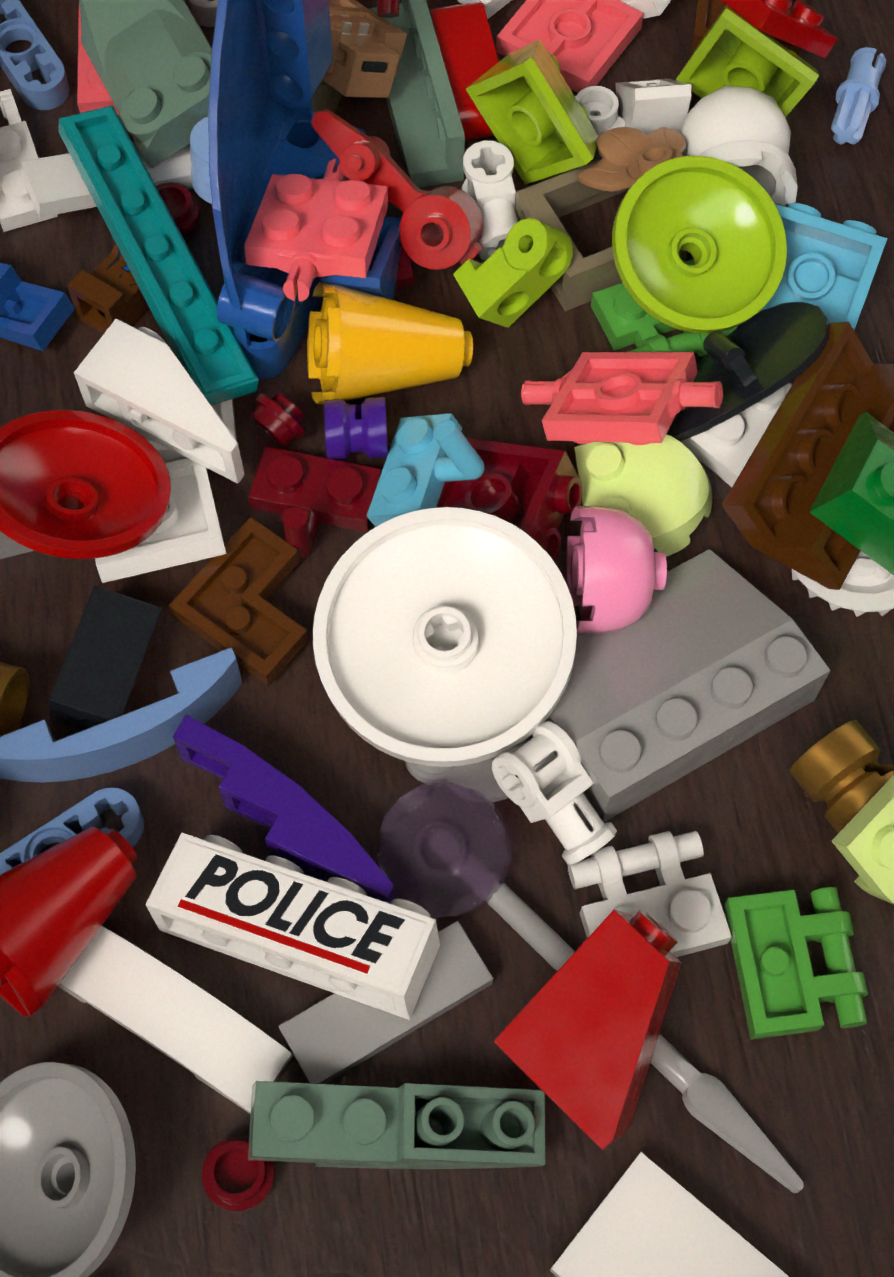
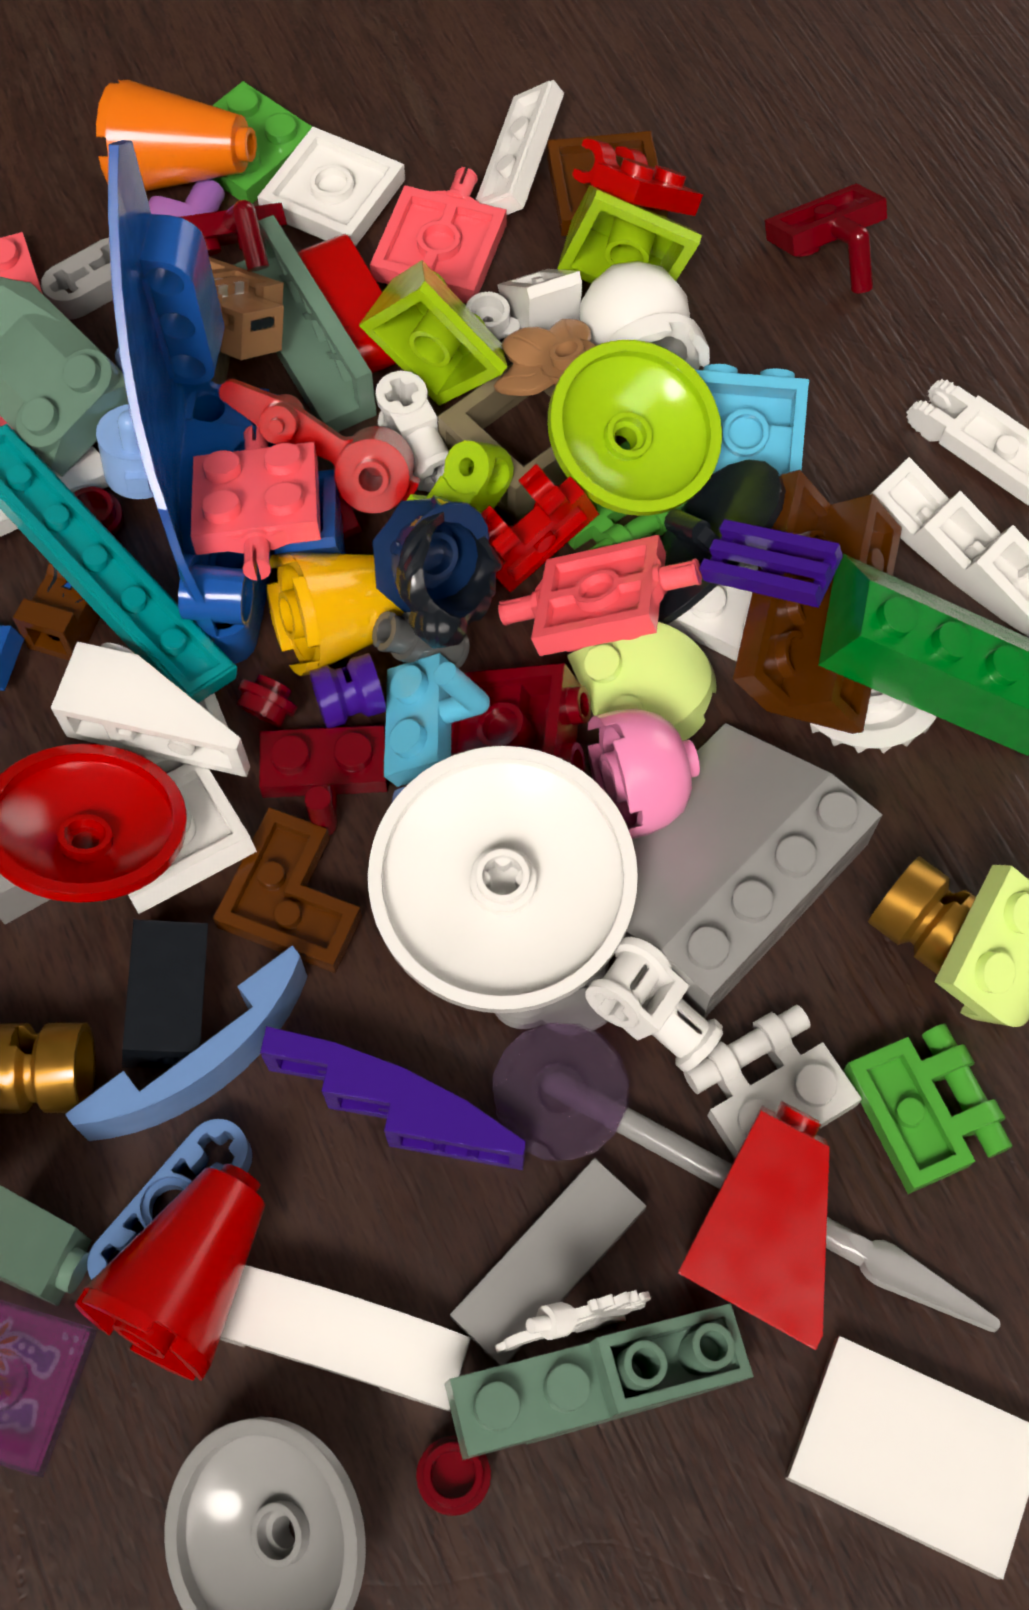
camera: 15 degrees left, 0 degrees up
(296, 923) = (437, 1206): white brick -> none
(405, 1061) = (561, 1319): none -> white piece
(429, 393) = (395, 635): none -> dark grey pin
(468, 330) = (437, 566): none -> piece
(580, 326) = (554, 521): none -> red plate
(798, 395) = (776, 554): none -> dark purple tile
(857, 96) = (734, 245): light blue axle -> none

